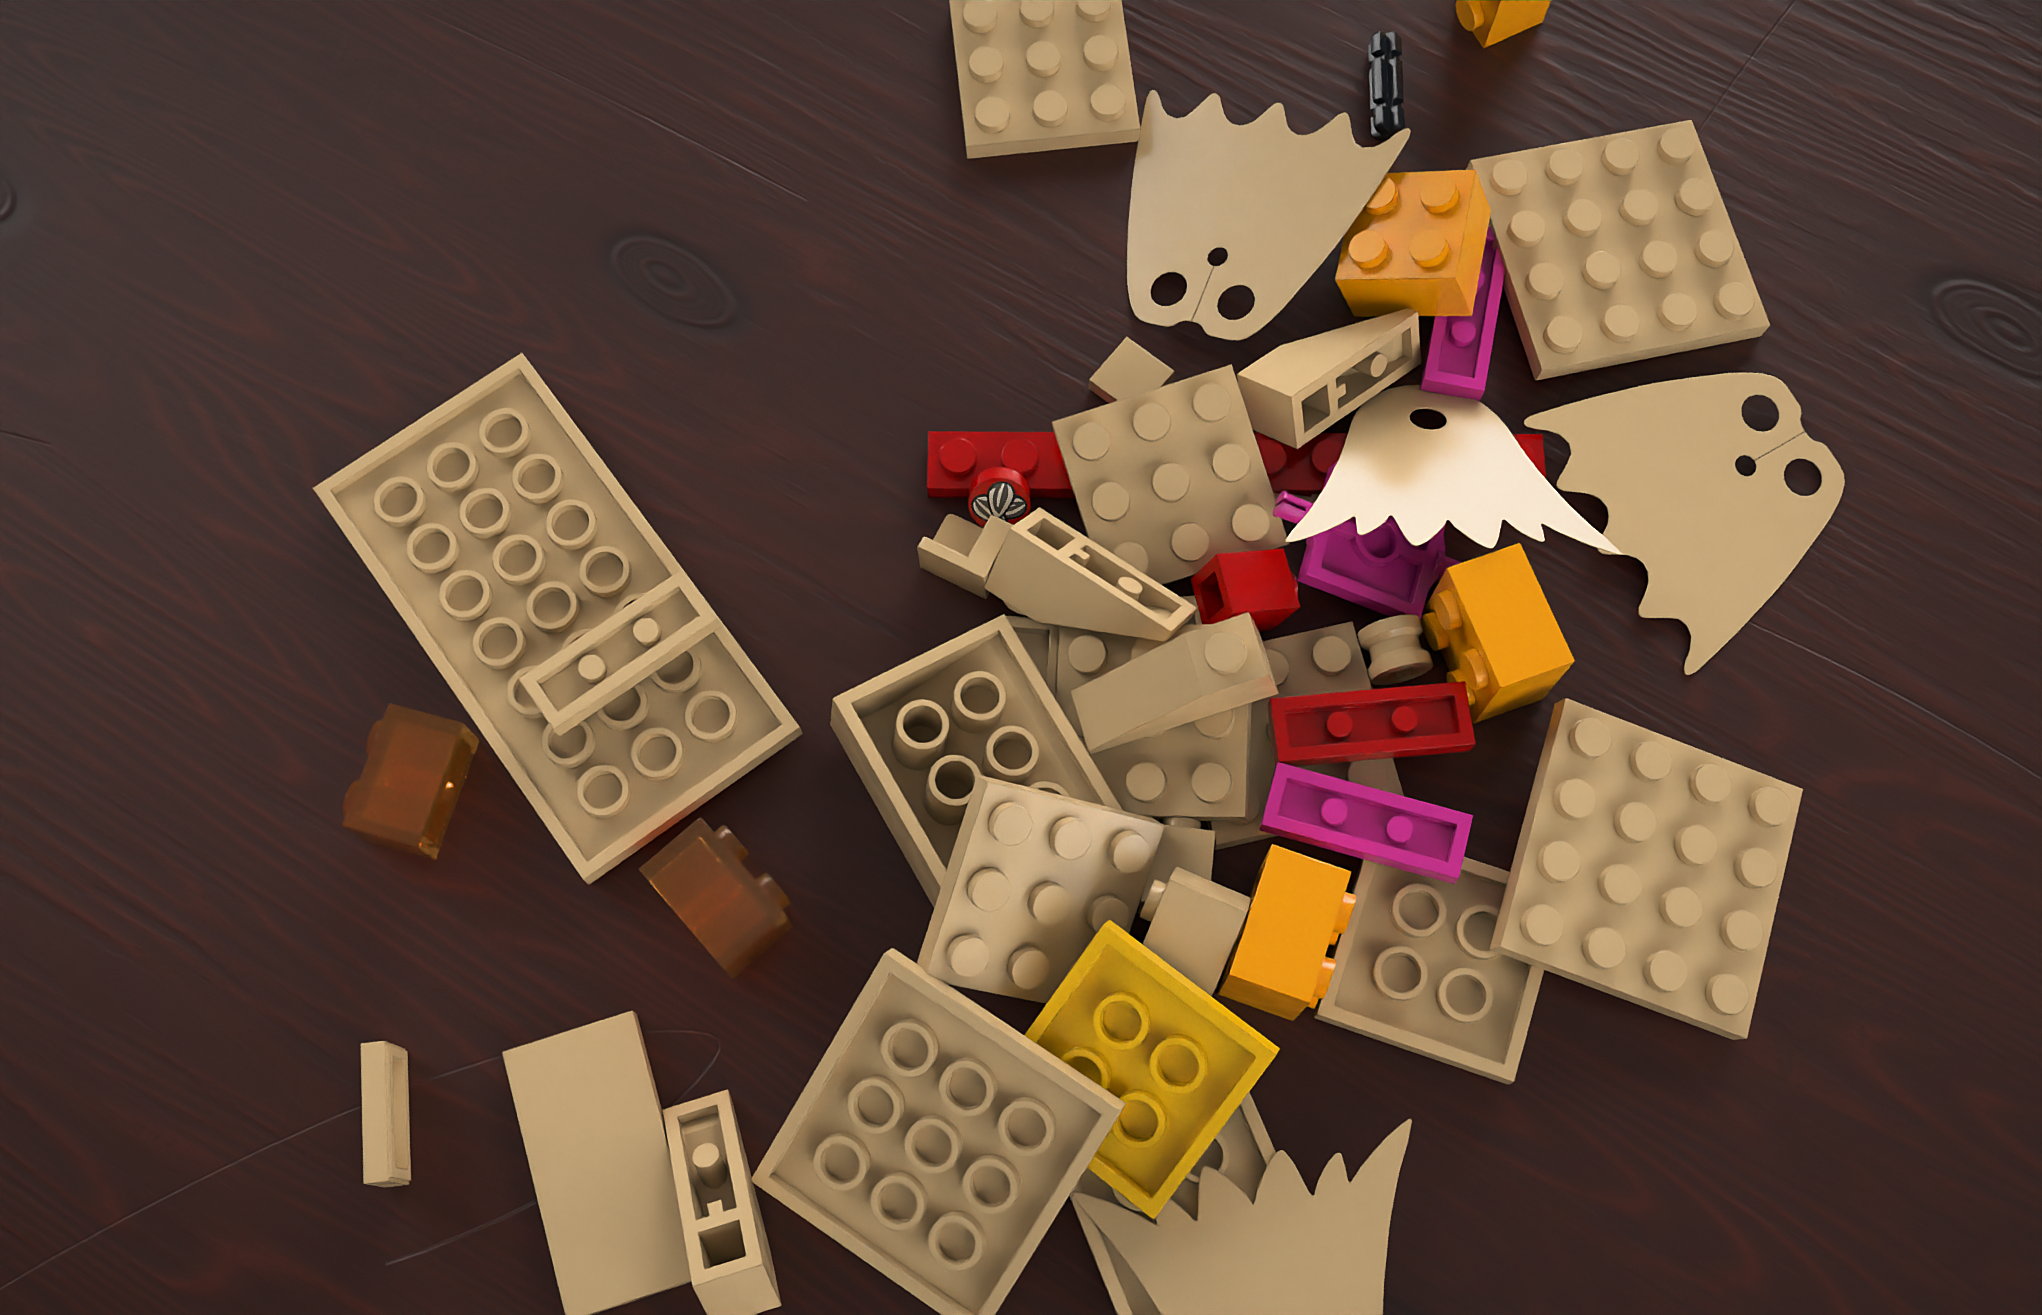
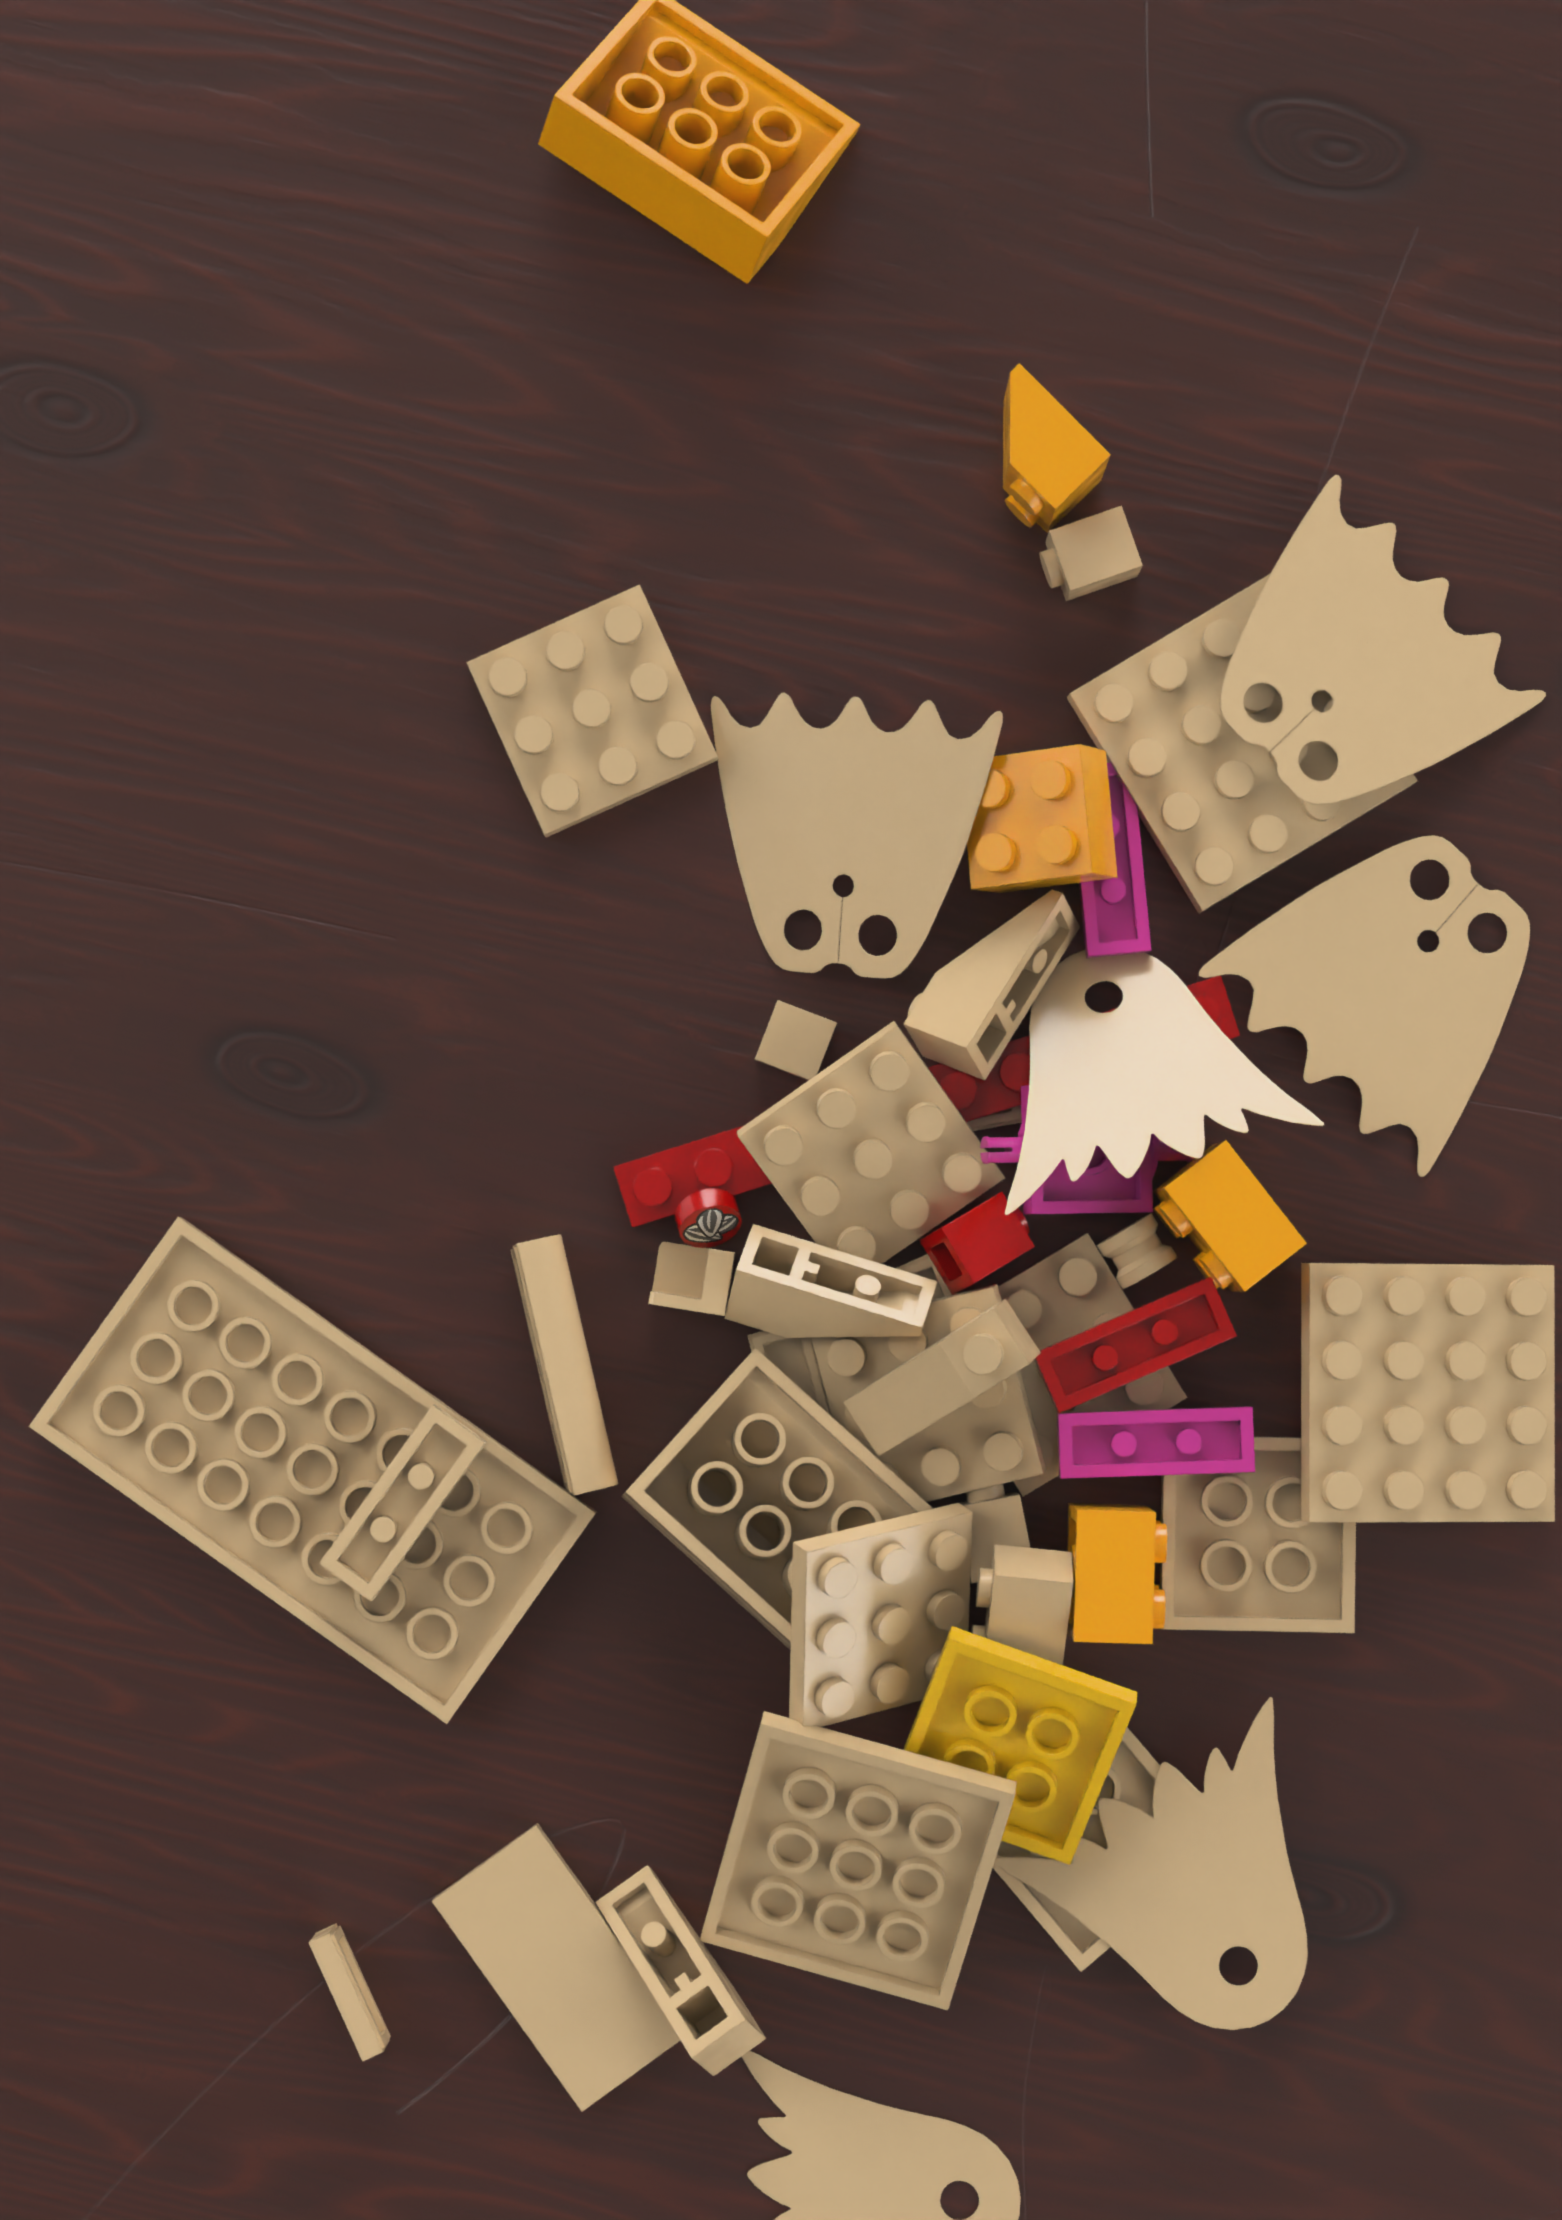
camera: 15 degrees left, 15 degrees up
(410, 781) = (244, 1683): clear orange brick -> none
(717, 895) = (577, 1696): clear orange brick -> none
(820, 588) = (564, 1365): none -> tan brick
(1386, 85) = (958, 620): black axle -> none
(1521, 61) = (1091, 554): none -> tan brick
(1766, 213) = (1380, 647): none -> tan piece

